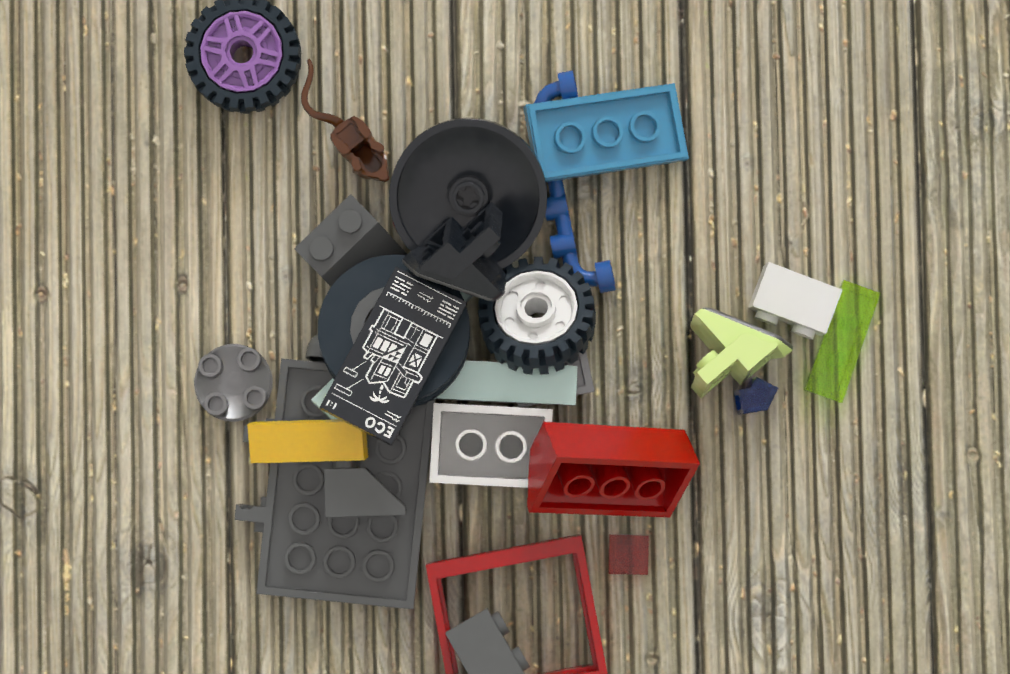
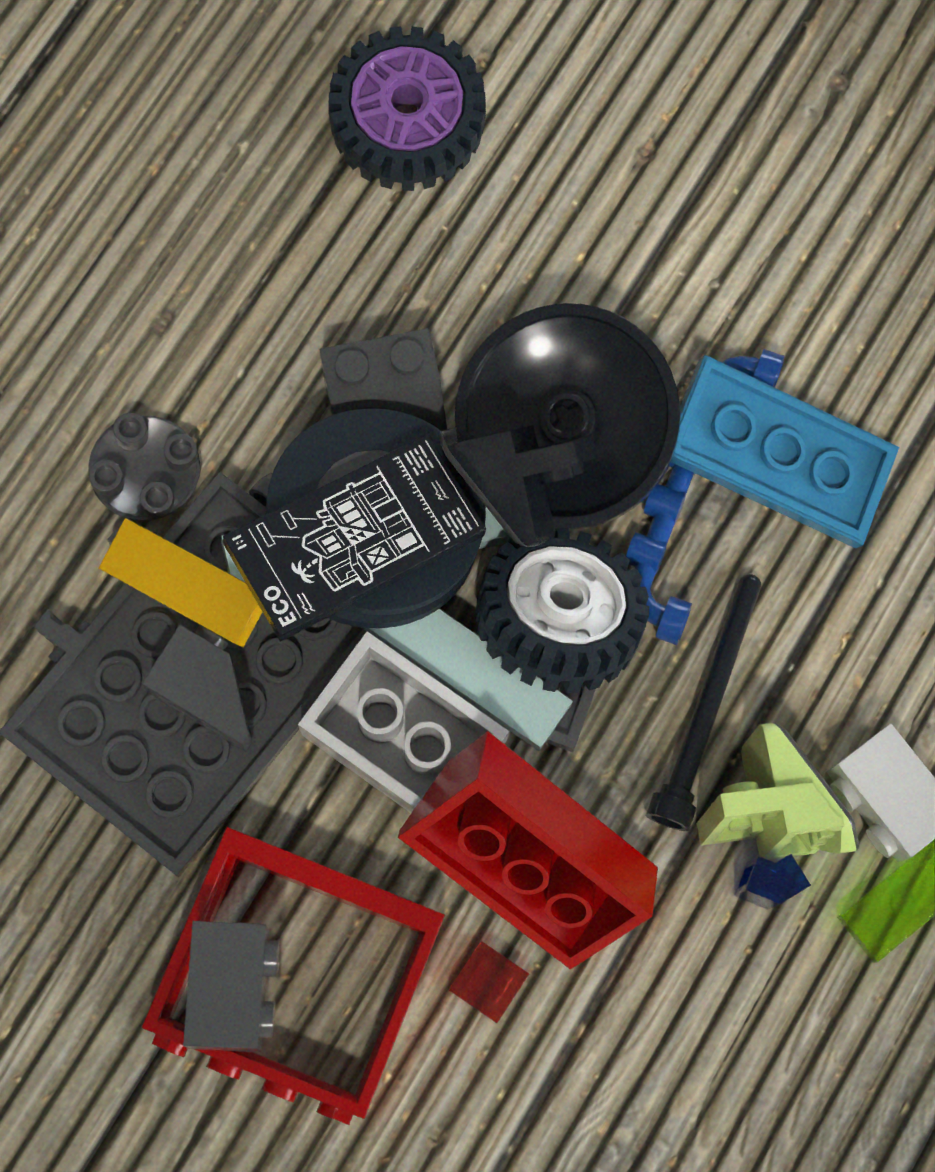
camera: 30 degrees right, 10 degrees down
(351, 139) = (470, 275): reddish brown animal -> none
(670, 384) = (674, 802): none -> black piece

